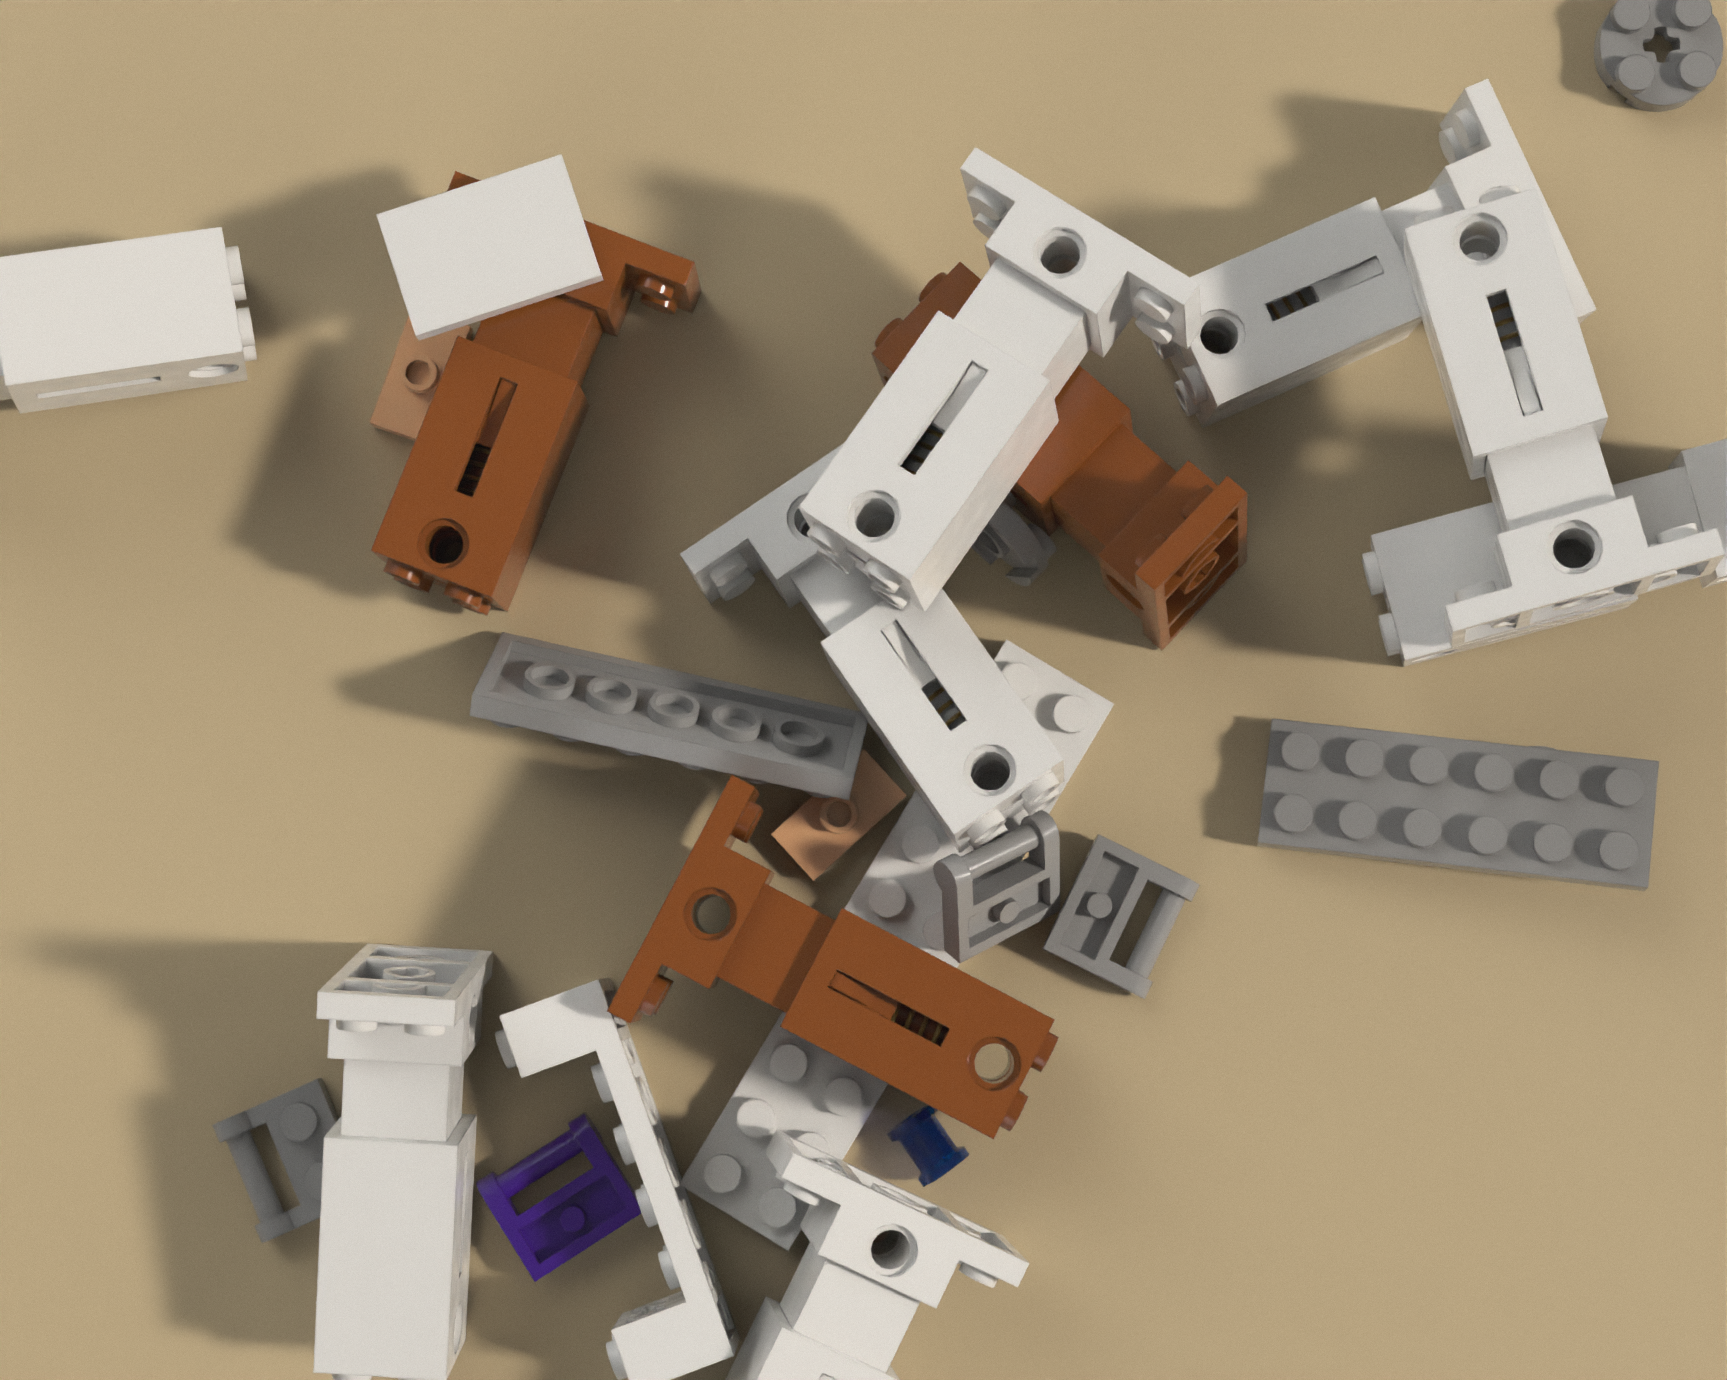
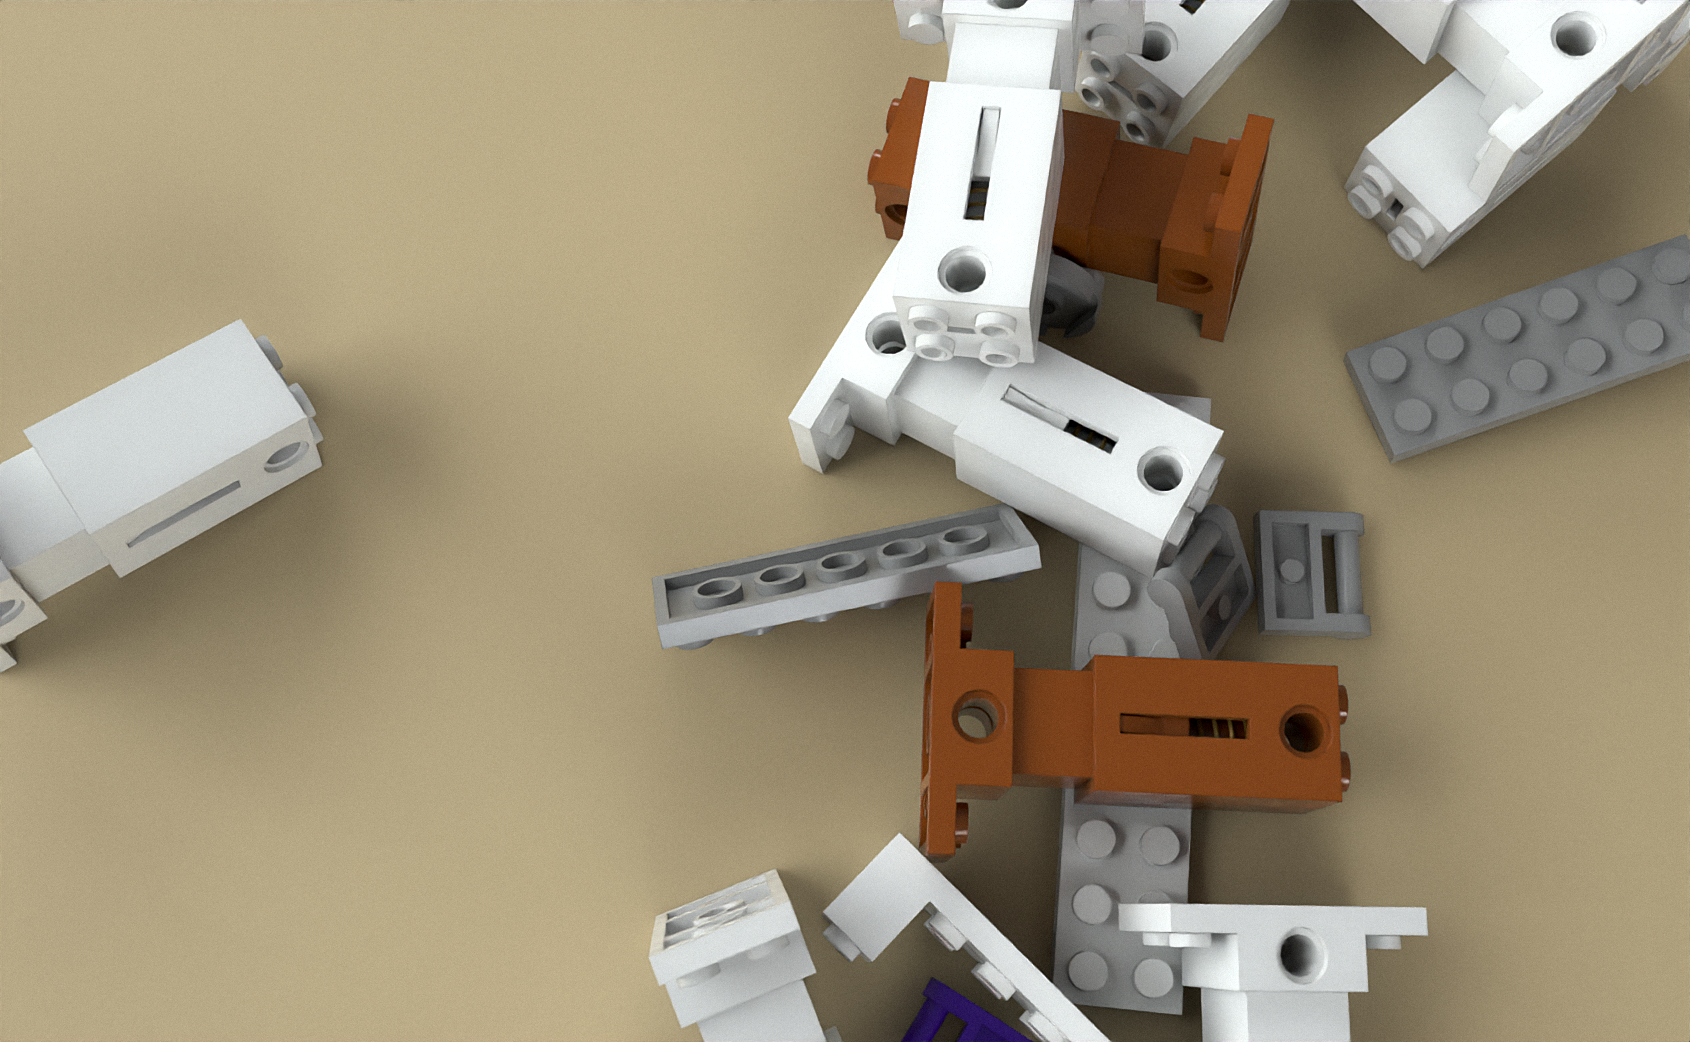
camera: 30 degrees left, 10 degrees down
(413, 380) = (478, 393): light nougat plate -> none
(489, 247) = (494, 230): white tile -> none
(510, 423) = (569, 353): dark orange brick -> none
(831, 826) = (1026, 607): light nougat plate -> none
(927, 1144) = (1278, 855): clear blue bush -> none

